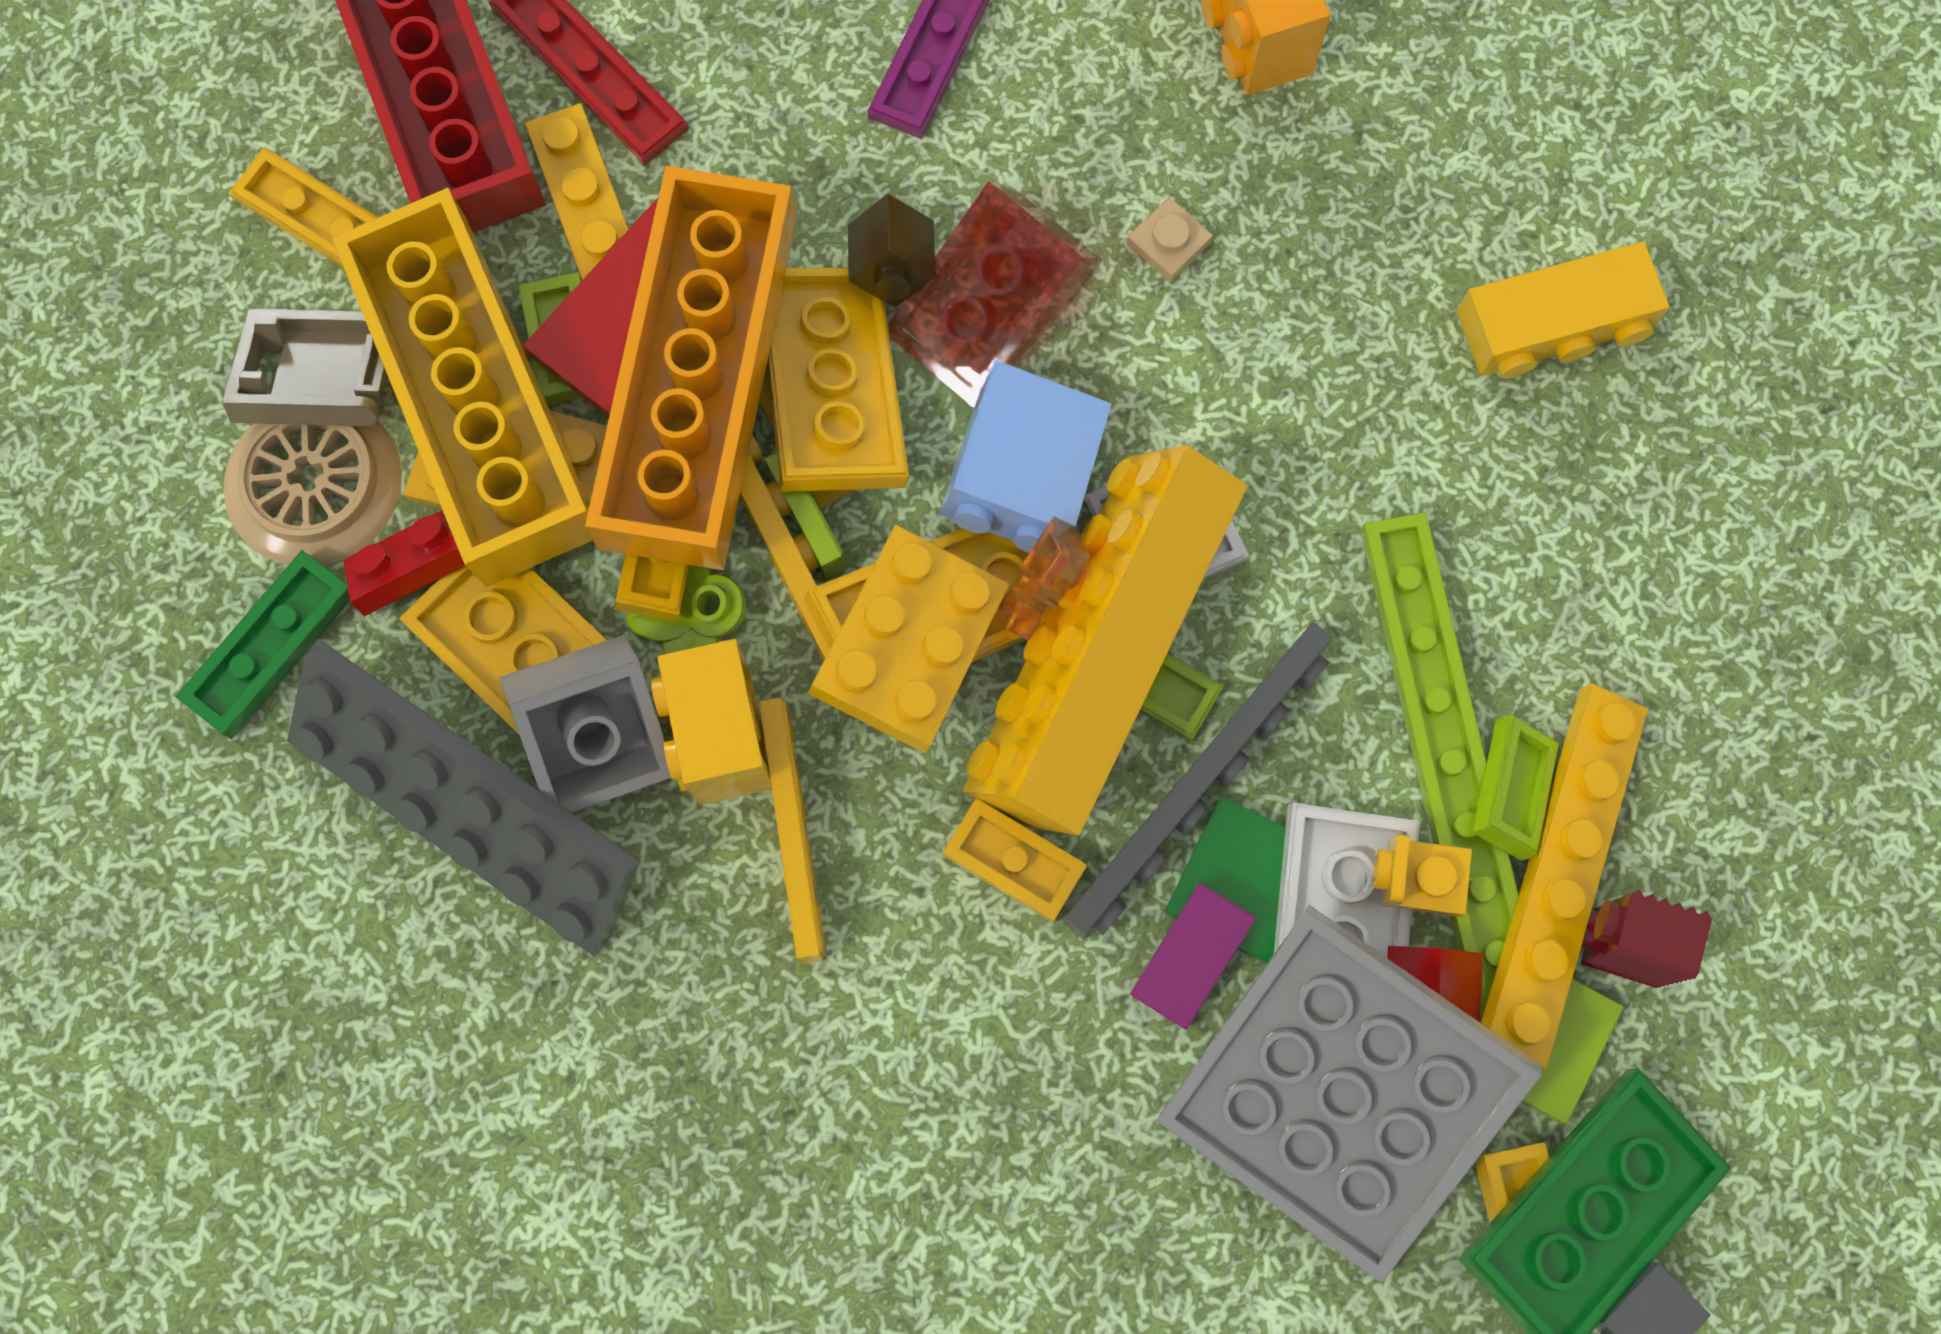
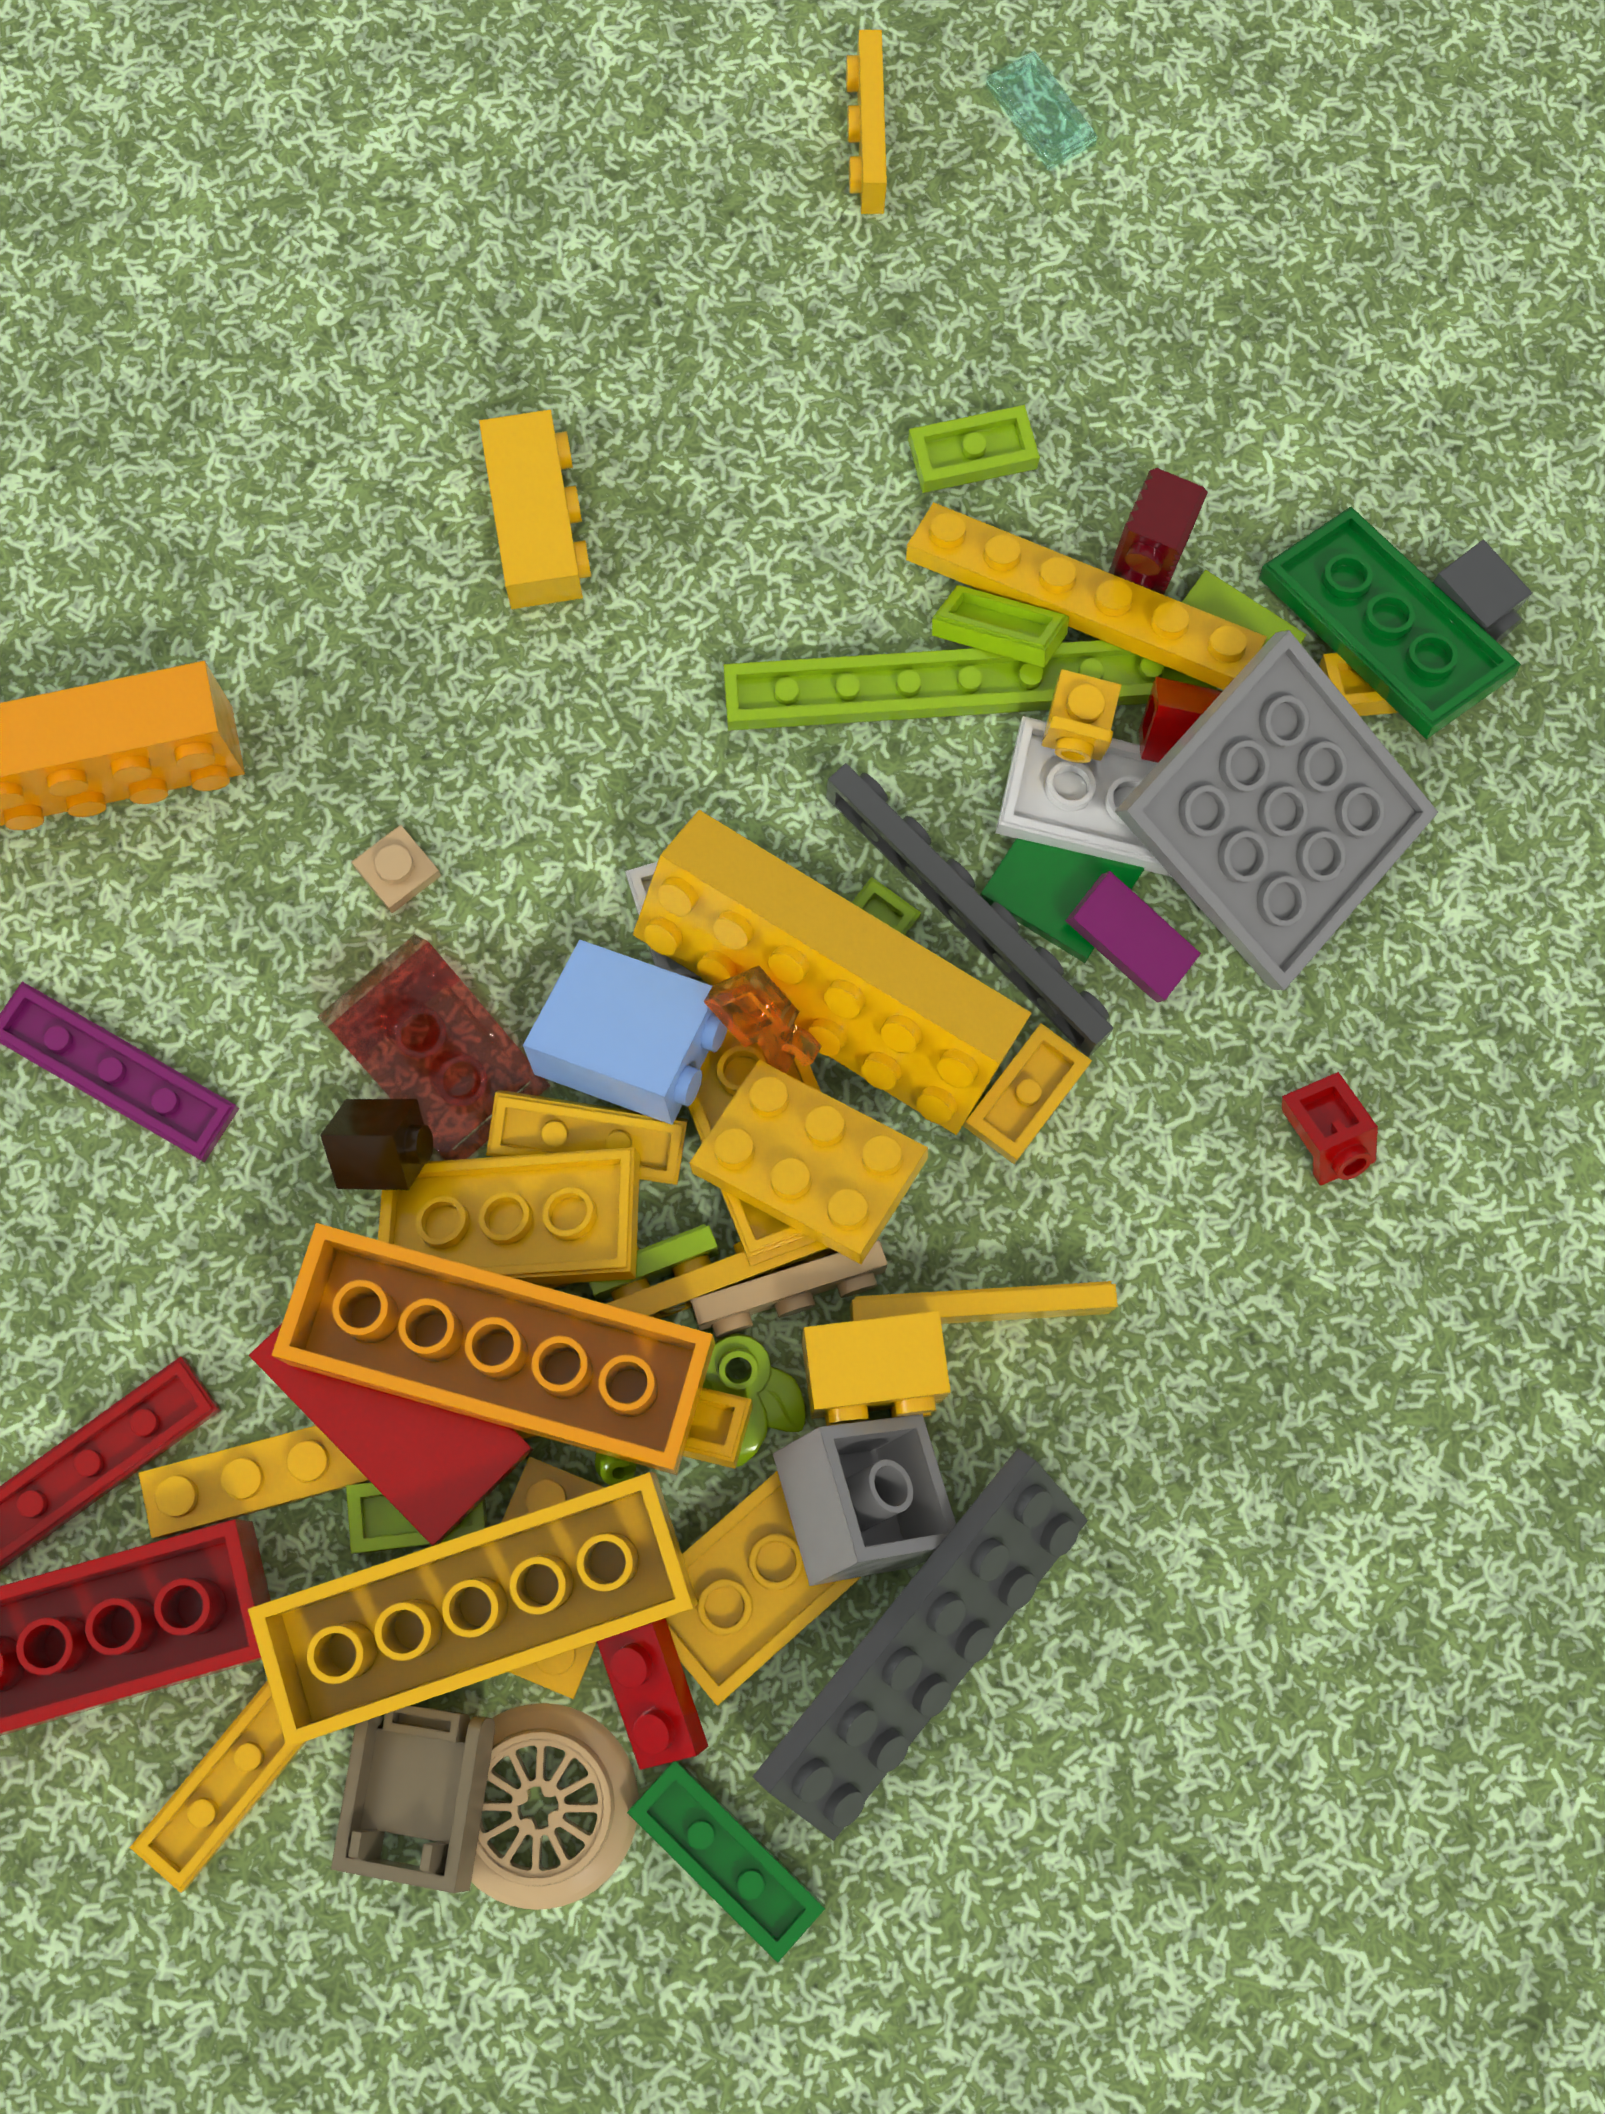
camera: 90 degrees left, 0 degrees up
(789, 642) = (787, 1291): none -> tan plate
(929, 417) = (550, 1125): none -> yellow tile
(1012, 1181) = (1332, 1128): none -> red bracket
(1718, 745) = (973, 448): none -> lime plate

